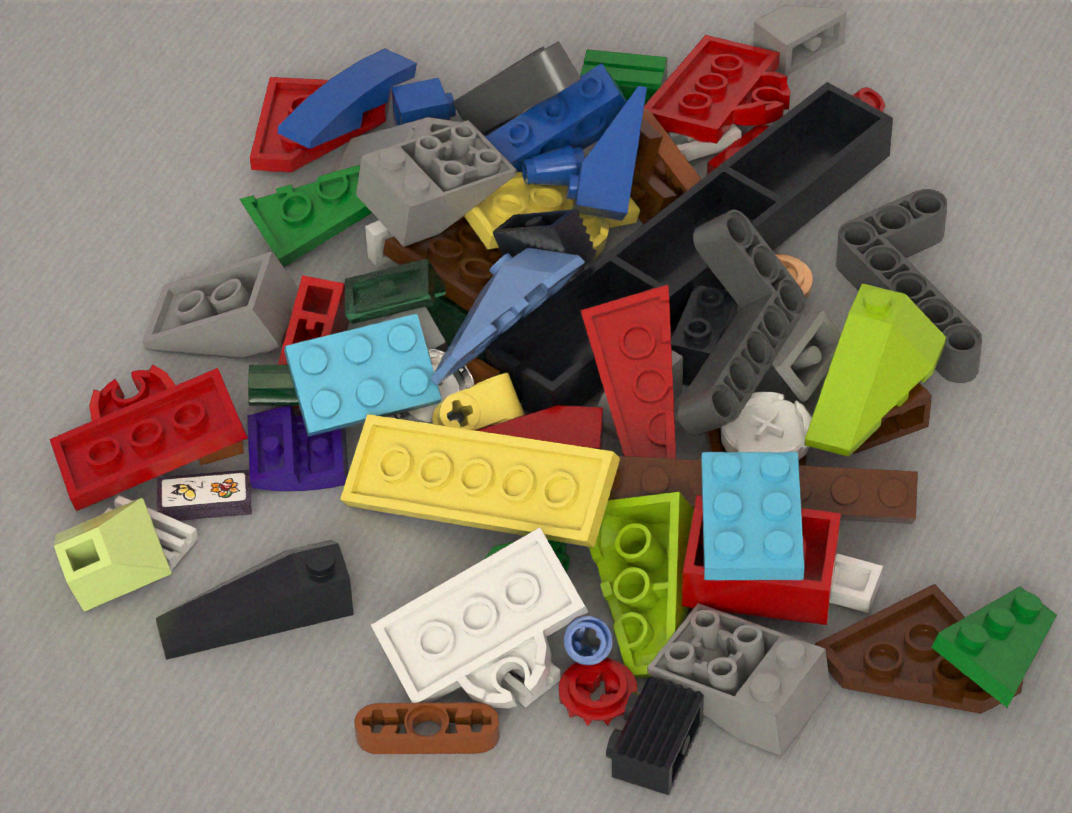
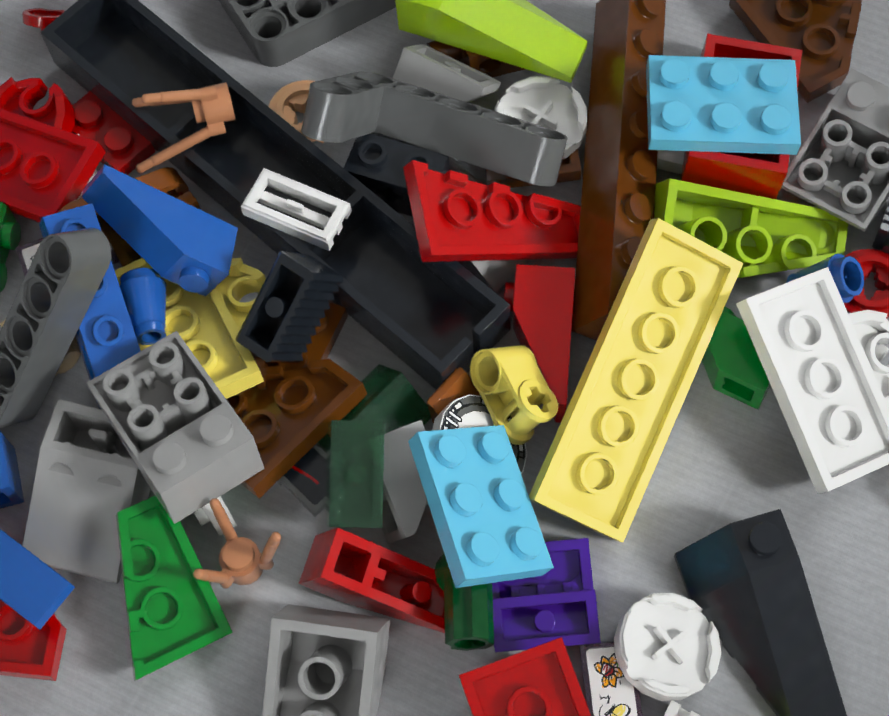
camera: 85 degrees left, 20 degrees up
(242, 525) = (667, 647): none -> white tile
(338, 256) = (239, 556): none -> nougat plant
(508, 297) = (385, 344): medium blue wedge -> none
(633, 267) = (287, 224): none -> white tile
(744, 180) = (210, 105): none -> nougat plant

